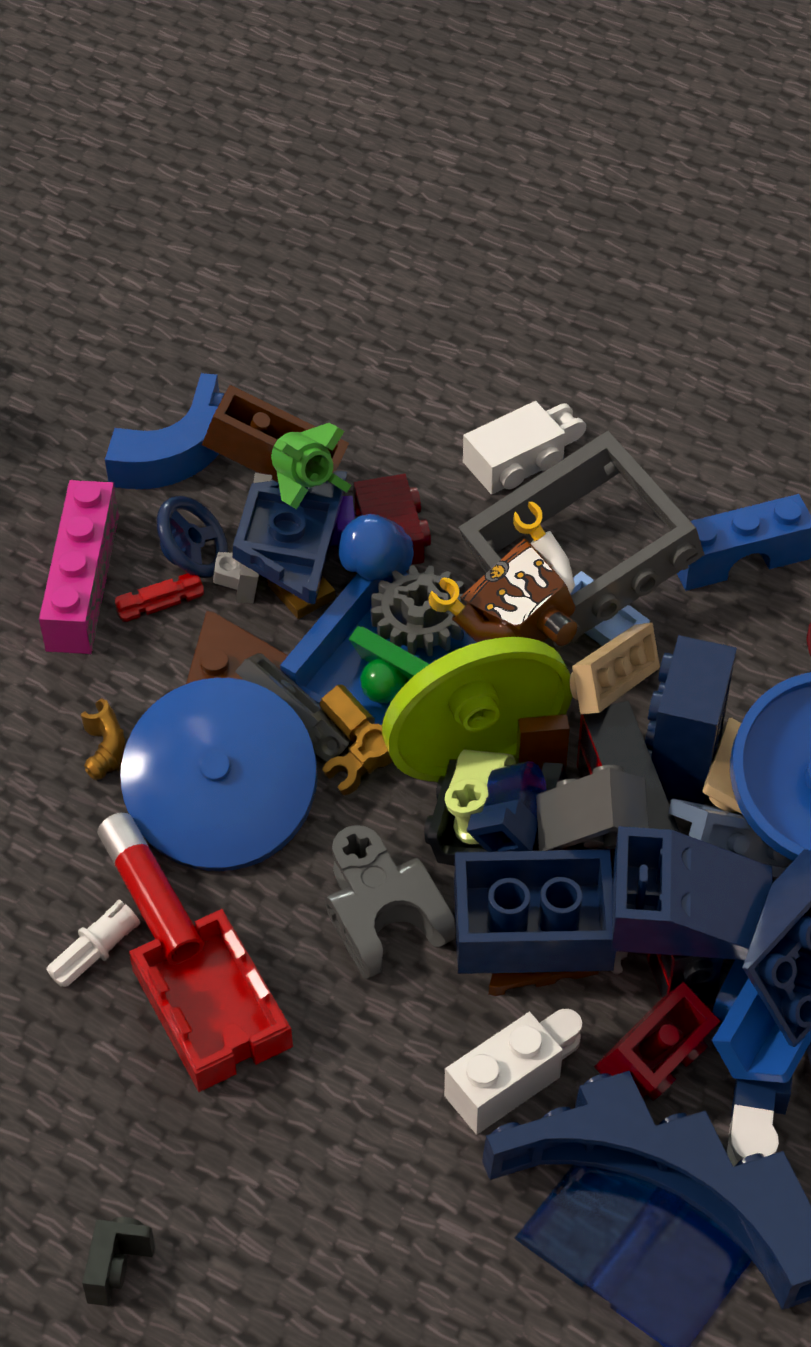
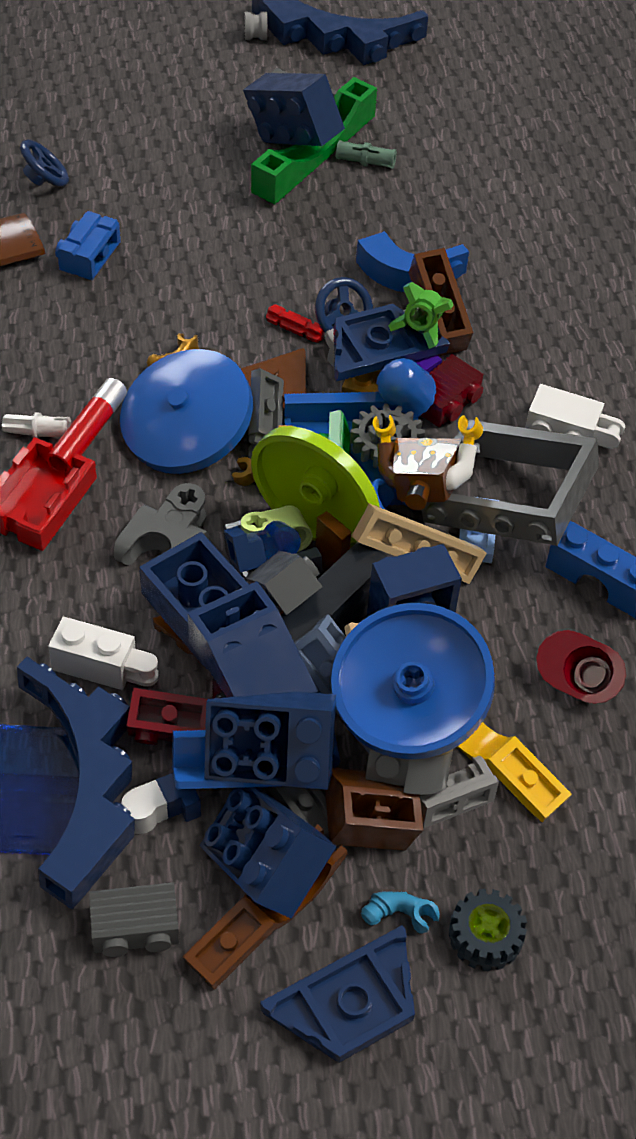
camera: 50 degrees right, 0 degrees up
(79, 567) = (278, 275): dark pink brick -> none

